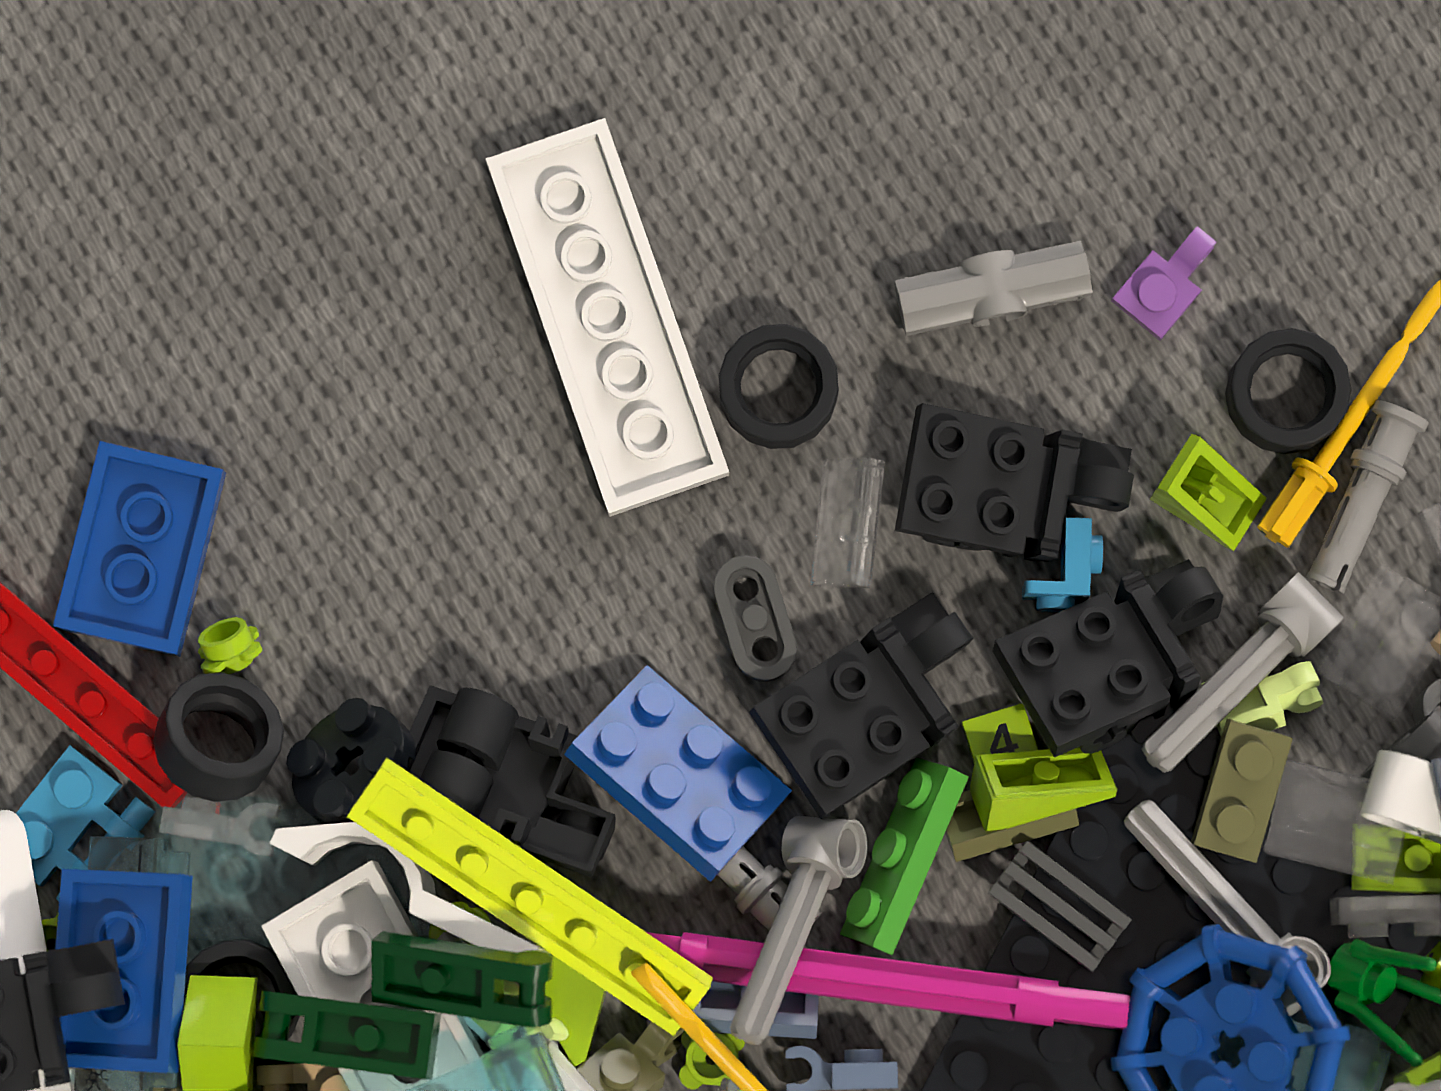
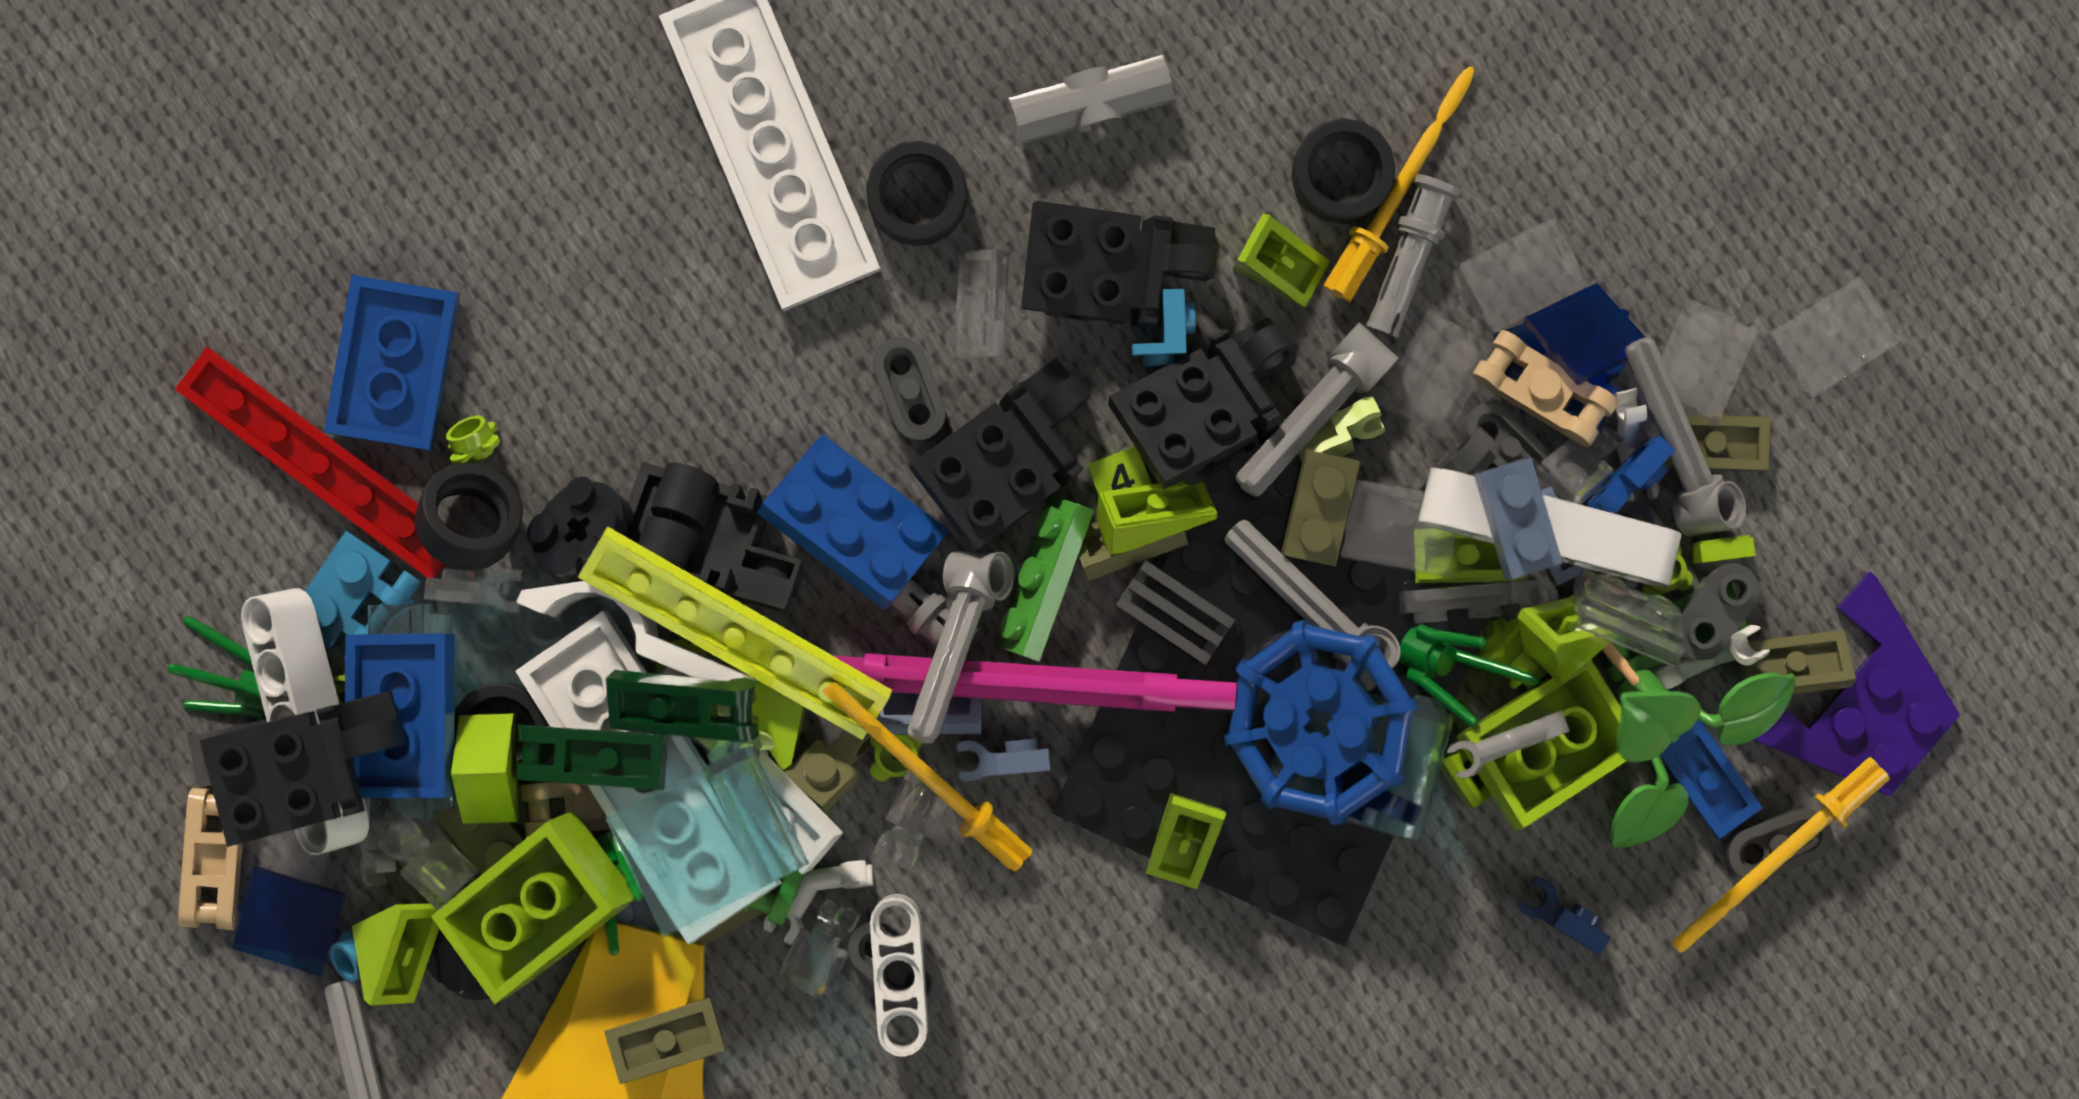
camera: 10 degrees left, 5 degrees up
(1161, 289) = (1232, 91): medium lavender plate -> none

